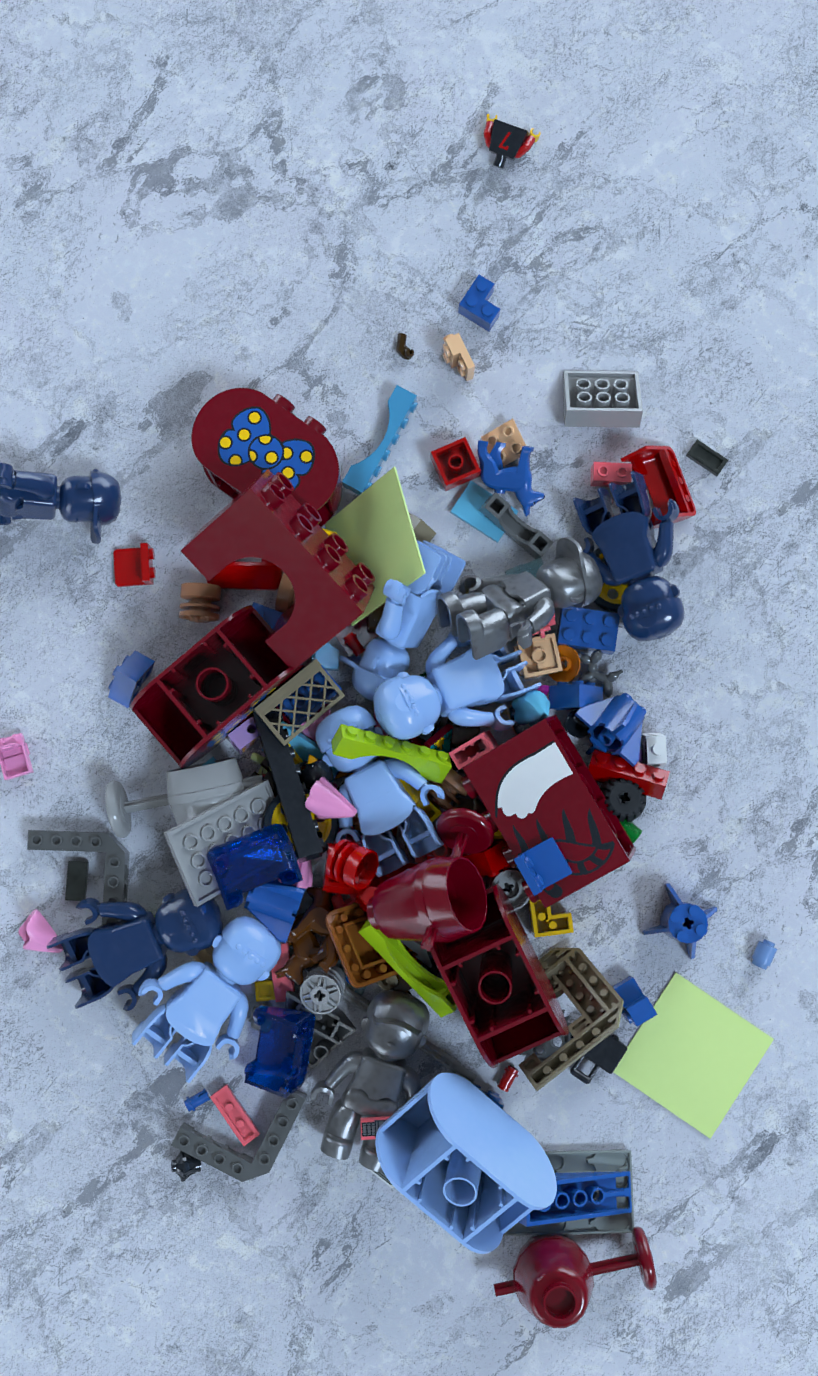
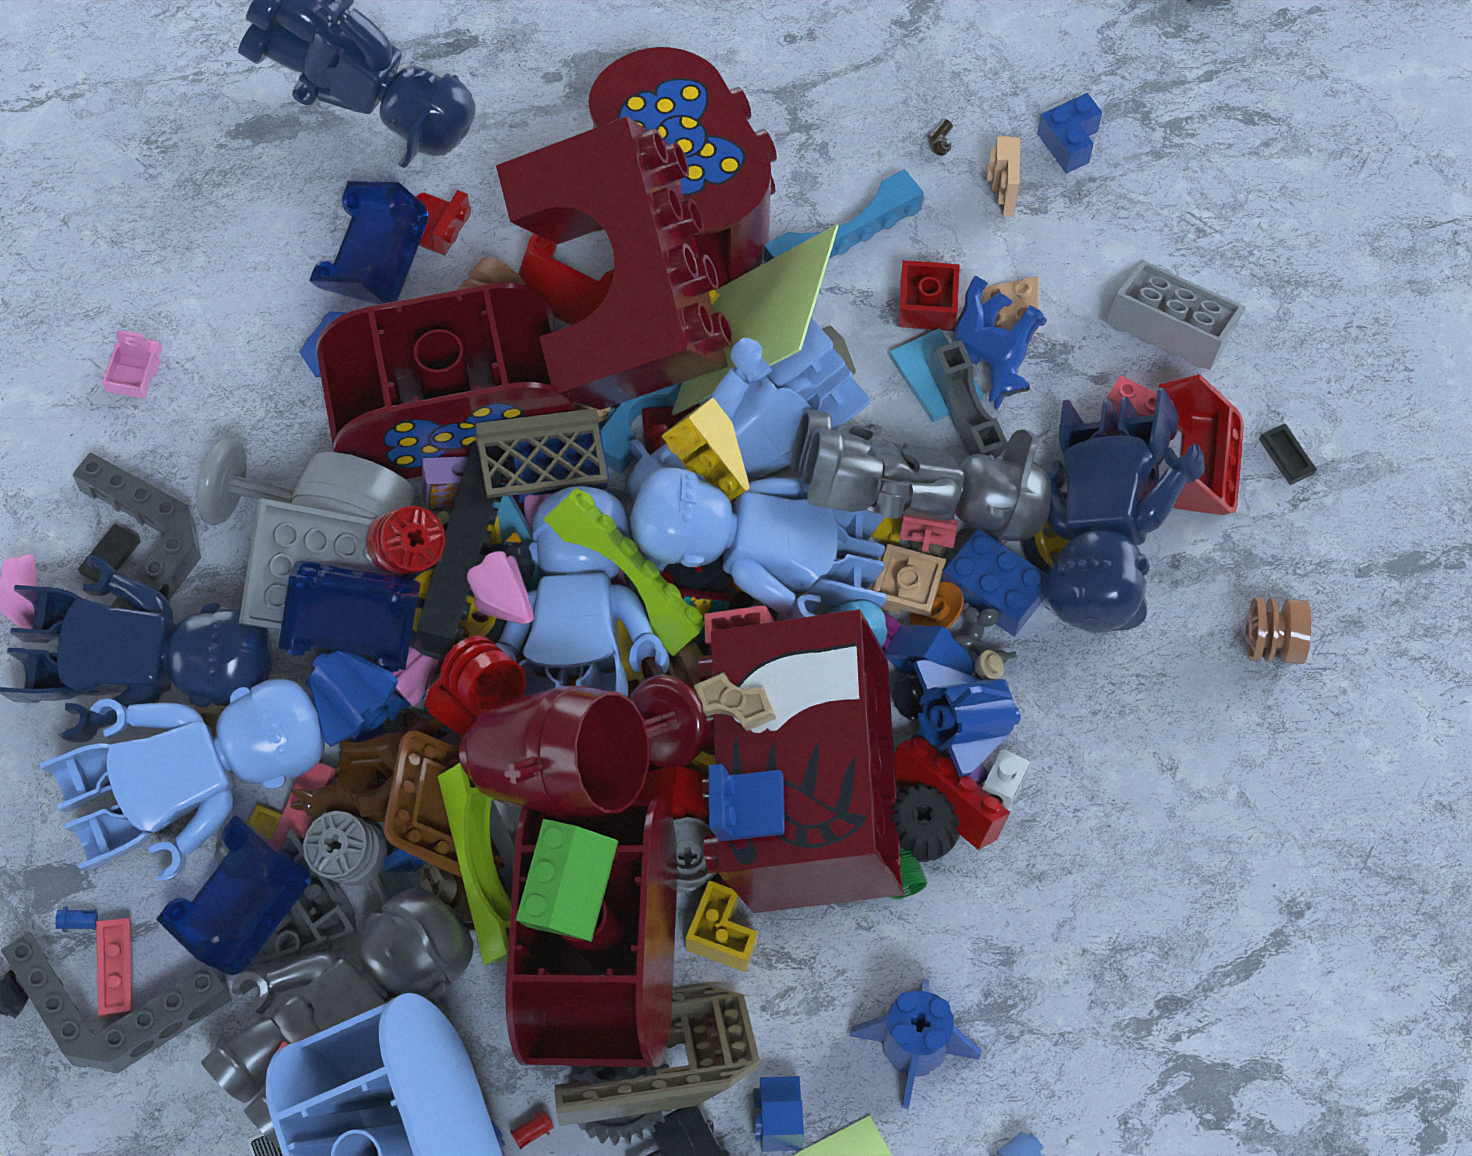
camera: 30 degrees right, 20 degrees down
(110, 603) = (377, 243): none -> clear blue windscreen
(248, 799) = (391, 548): none -> red wheel
(399, 654) = (710, 448): none -> yellow slope
(481, 978) = (567, 880): none -> bright green slope
(509, 806) = (747, 705): none -> tan tile
(612, 687) = (989, 665): none -> tan plate
(758, 579) = (1273, 630): none -> nougat wheel

